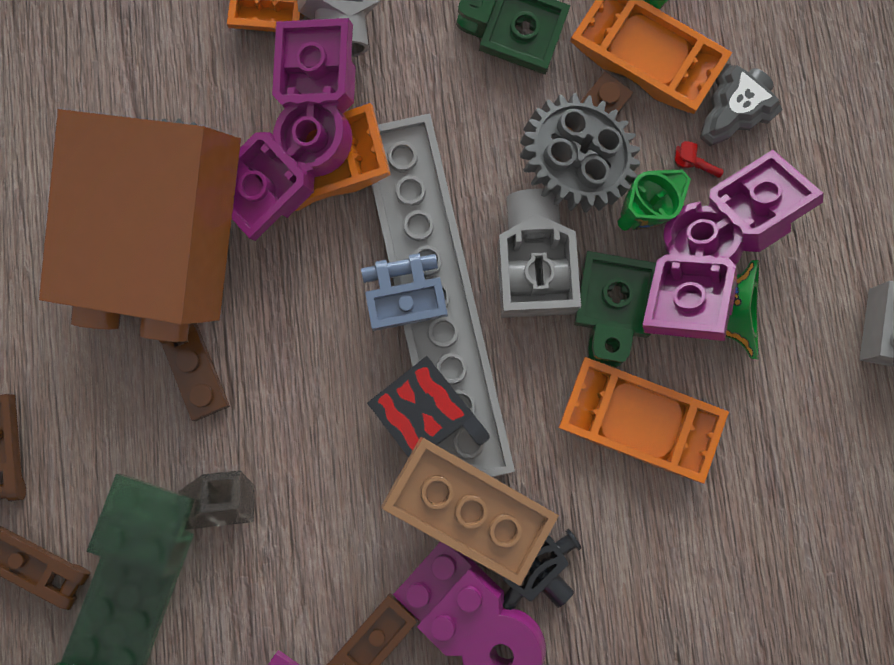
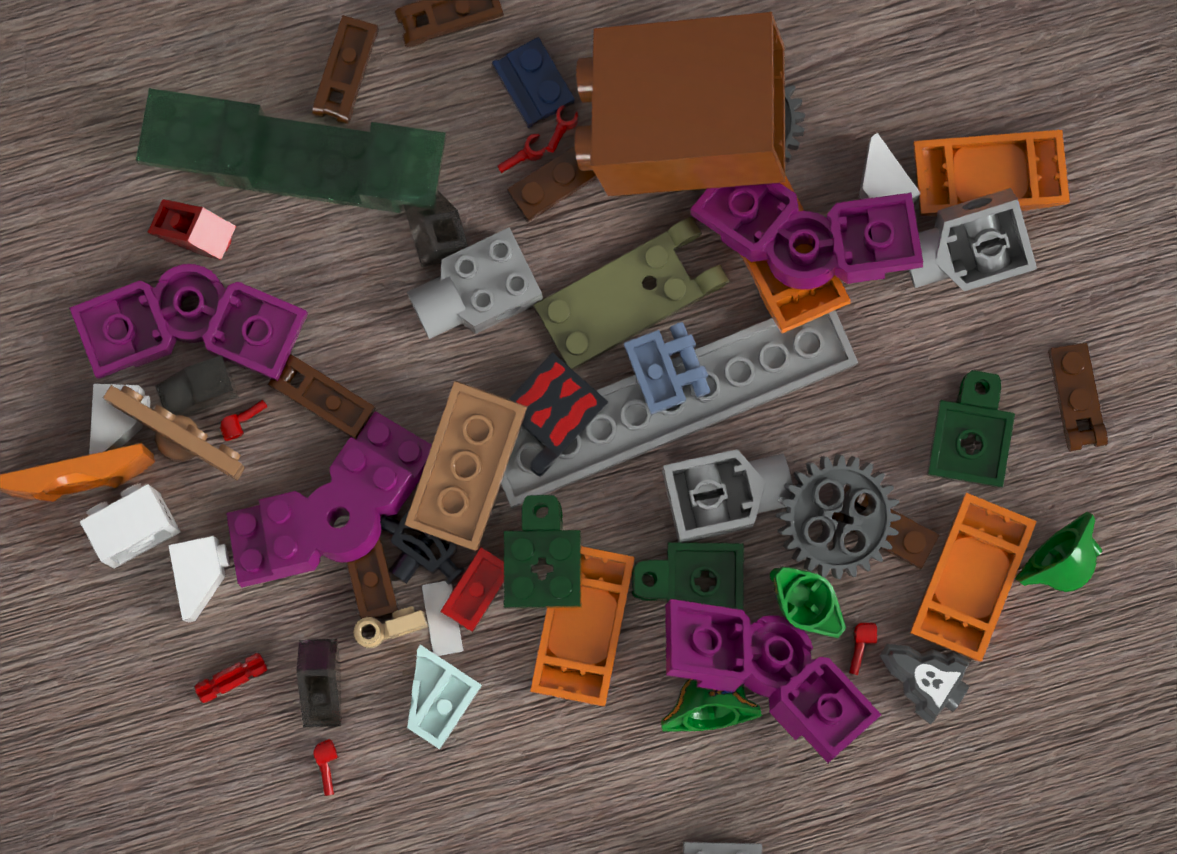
camera: 80 degrees right, 0 degrees up
(89, 376) = (533, 82): none -> dark blue plate
(141, 356) = (560, 129): none -> red hand
(160, 398) = (522, 155): none -> red hand
(250, 58) = (883, 173): none -> white slope
(285, 468) = (477, 287): none -> light grey brick
(328, 335) = (613, 303): none -> olive hinge
(556, 444) = (542, 540): none -> dark green plate
(571, 626) = (372, 584): none -> reddish brown plate
(592, 520) = (475, 590): none -> red plate
(612, 559) = (443, 631): none -> white sticker
(616, 602) = (403, 623): none -> tan plate
(694, 577) = (438, 697): none -> light aqua wing

